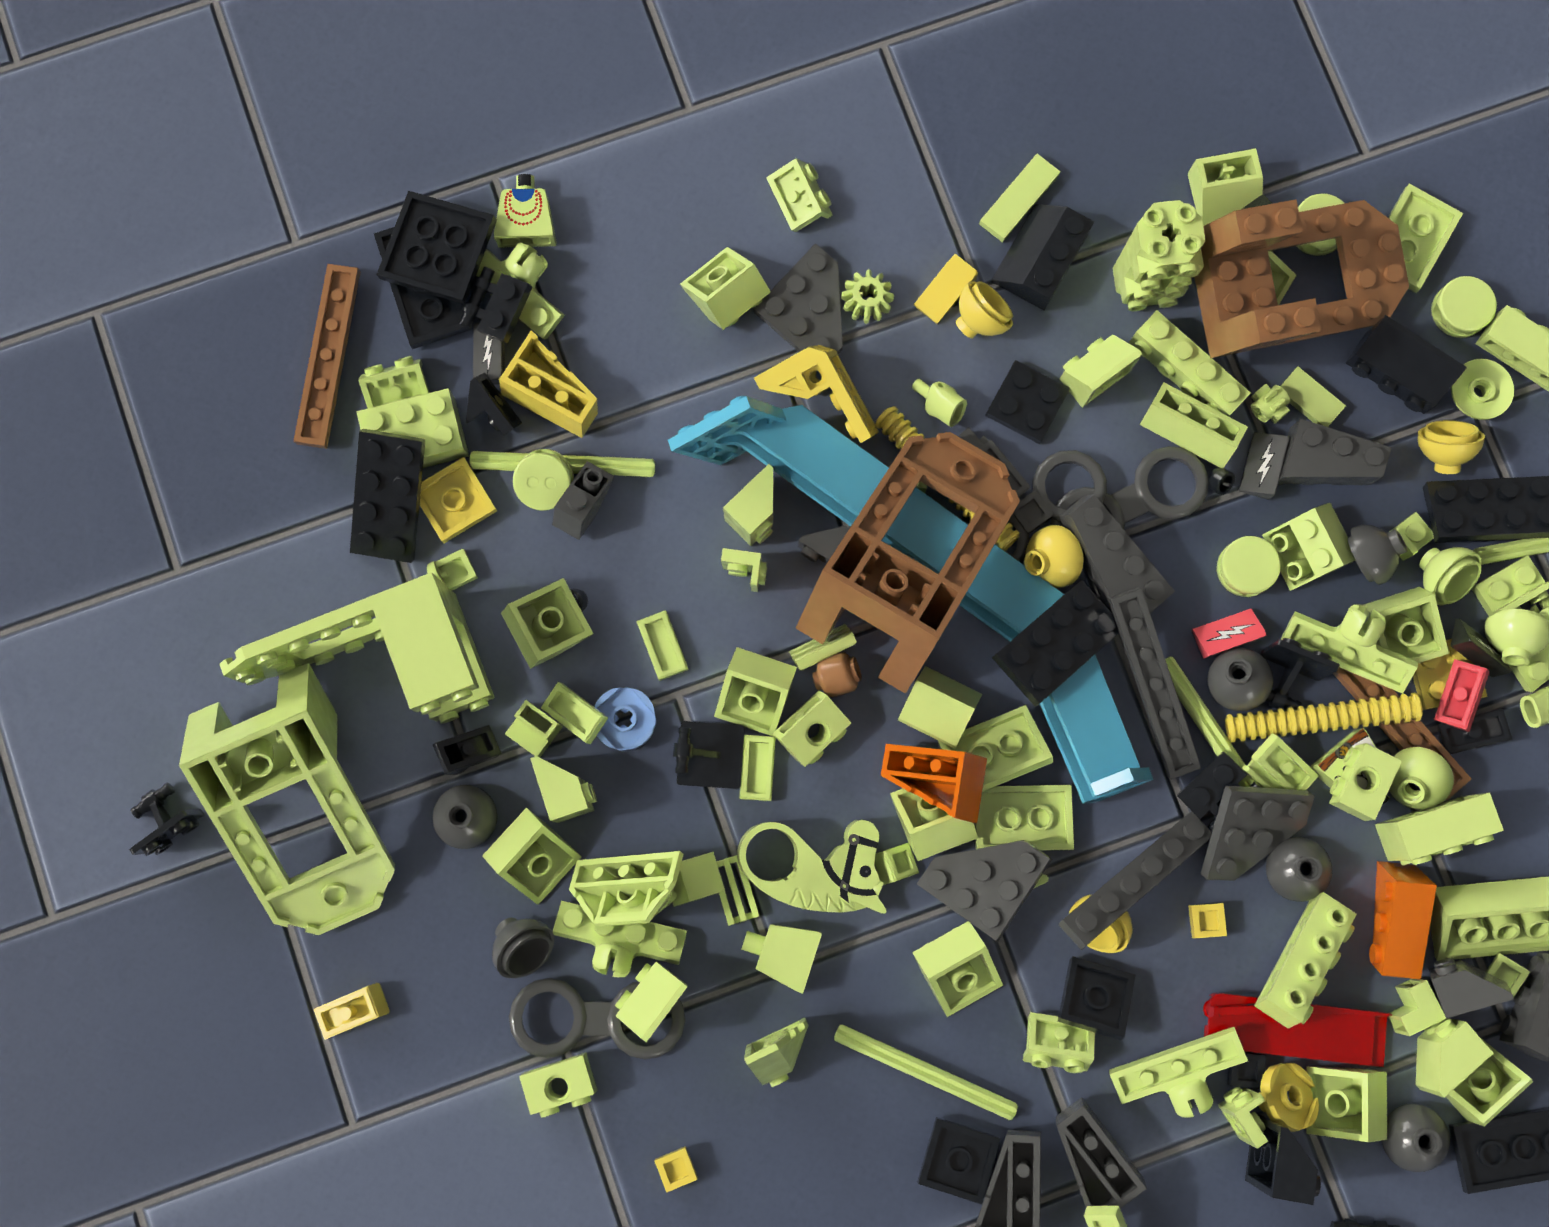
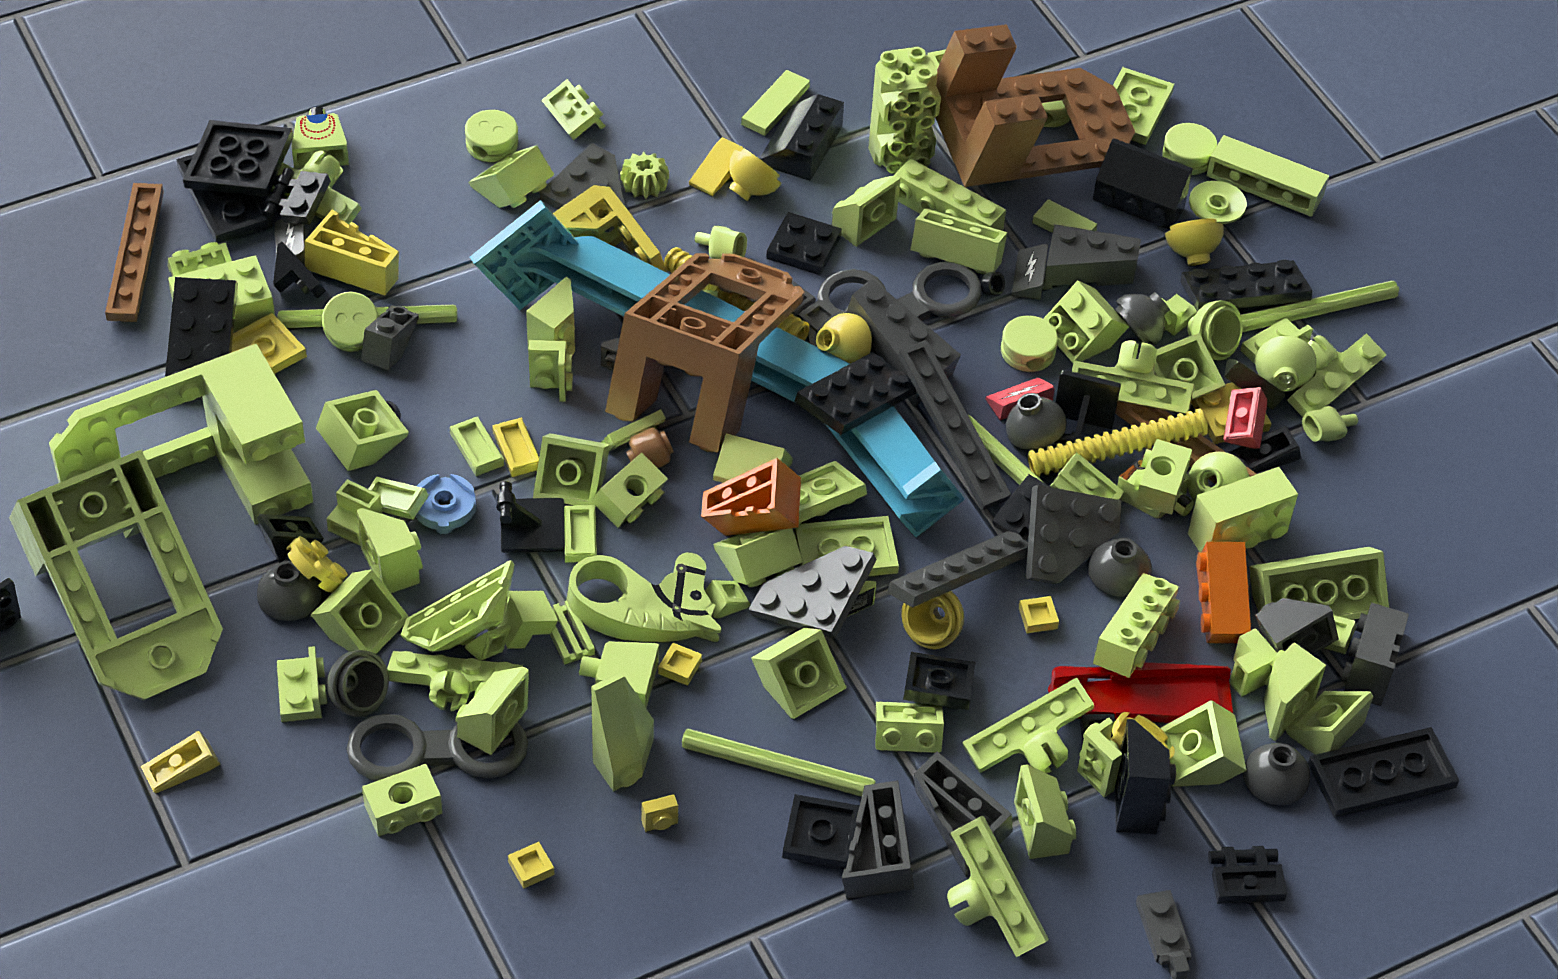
camera: 10 degrees left, 30 degrees down
(469, 933) = (299, 687): none -> yellowish green bracket
(491, 783) = (312, 561): none -> light yellow plate
(702, 650) = (516, 447): none -> light yellow tile
(708, 224) = (491, 135): none -> yellowish green head
(804, 1126) = (659, 813): none -> light yellow plate
(841, 945) = (680, 664): none -> light yellow plate
(1177, 1172) = (1043, 814): none -> yellowish green slope
(1270, 403) = (1027, 224): yellowish green gear -> none

